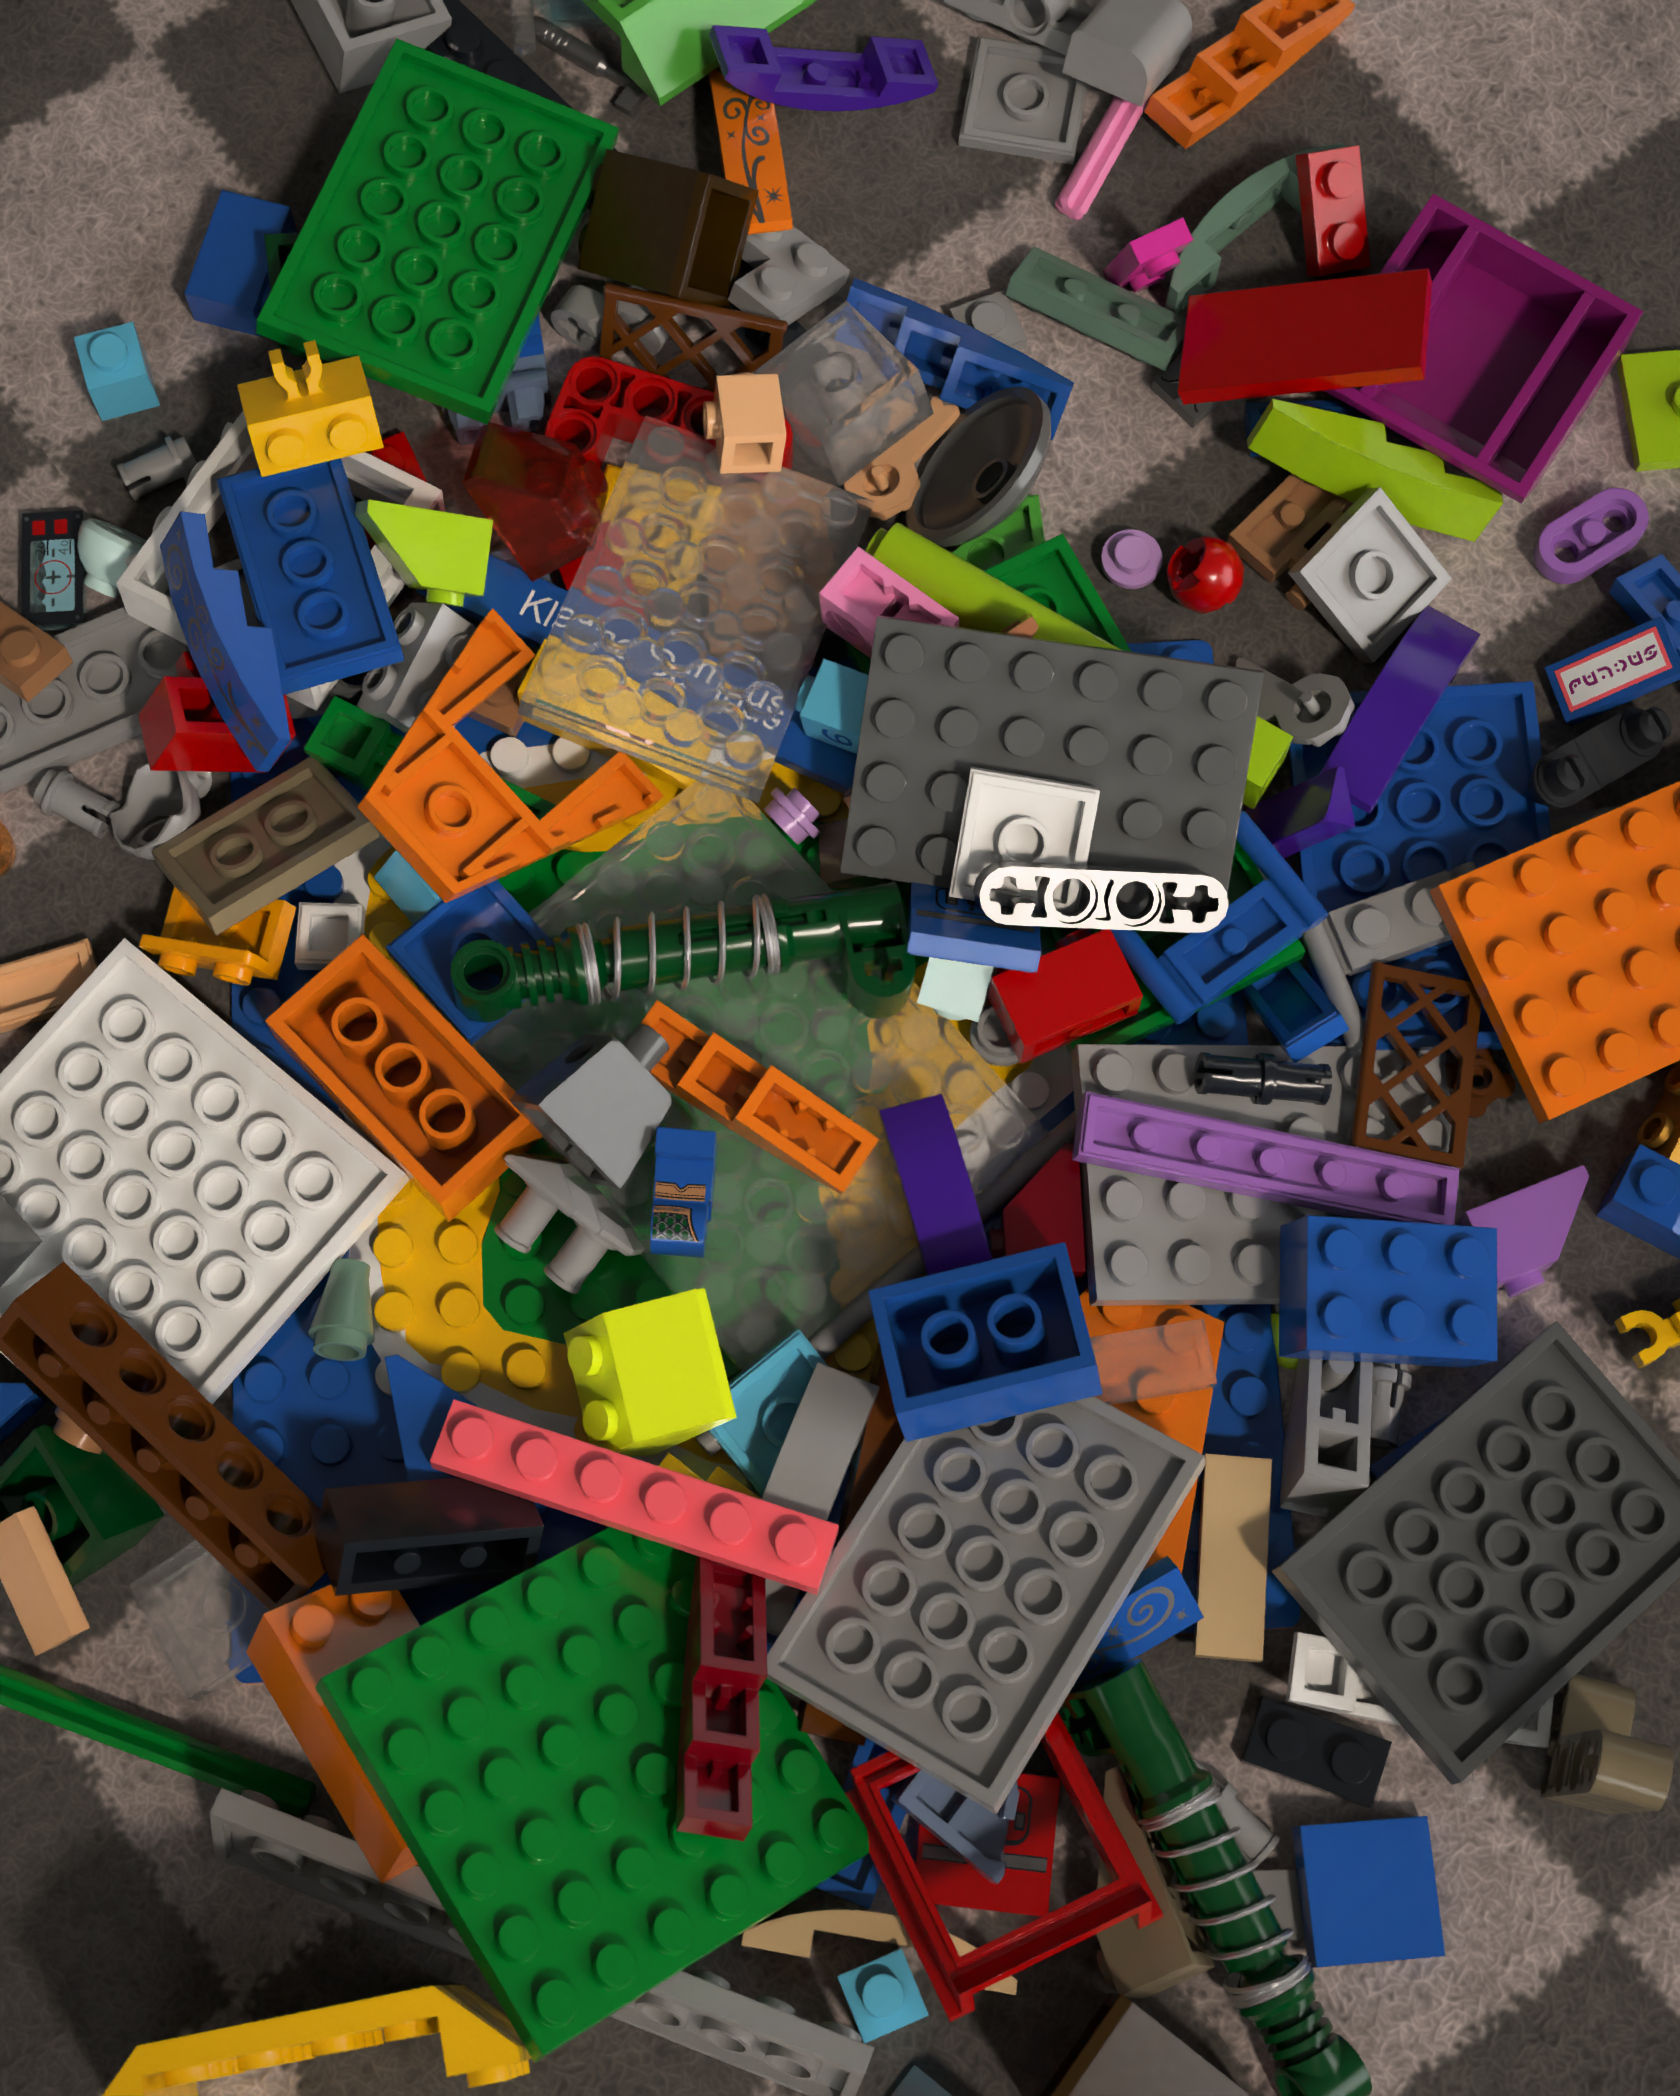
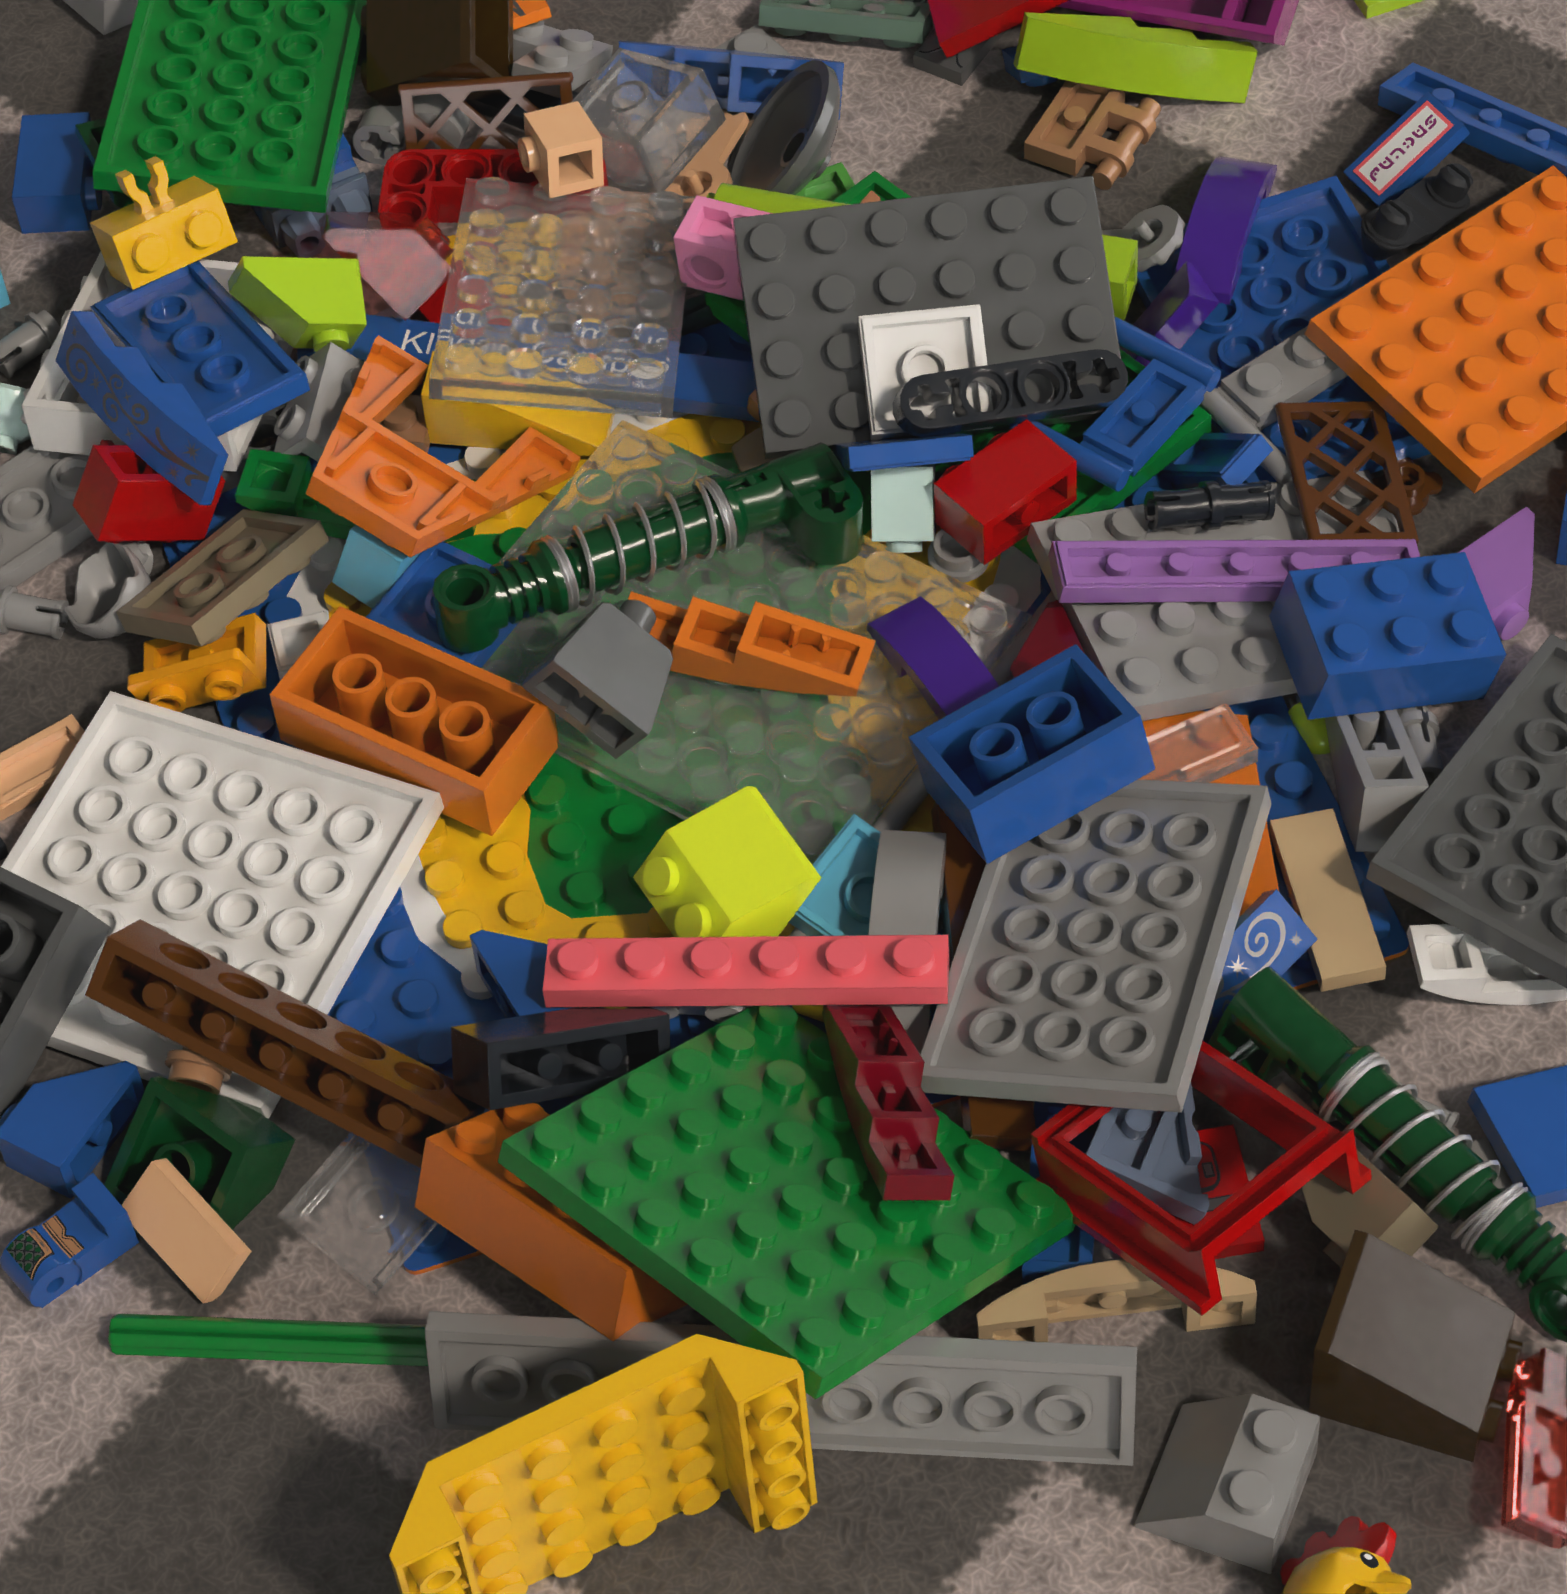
camera: 10 degrees left, 20 degrees down
(344, 1314) = (417, 931): sand green cone -> none
(555, 1186) = (586, 768): light grey connector -> none
(683, 1191) = (706, 727): blue leg -> none
(793, 814) = (706, 437): lavender plate -> none
(833, 705) = (717, 336): medium azure brick -> none
(882, 1995) = (1139, 1321): medium azure brick -> none
(1131, 559) = (941, 180): lavender plate -> none
(1205, 574) = (1013, 164): red piece -> none
(1316, 1752) = (1466, 1041): black plate -> none
(1370, 575) = (1161, 137): light grey plate -> none
(1587, 536) = (1335, 74): medium lavender plate -> none

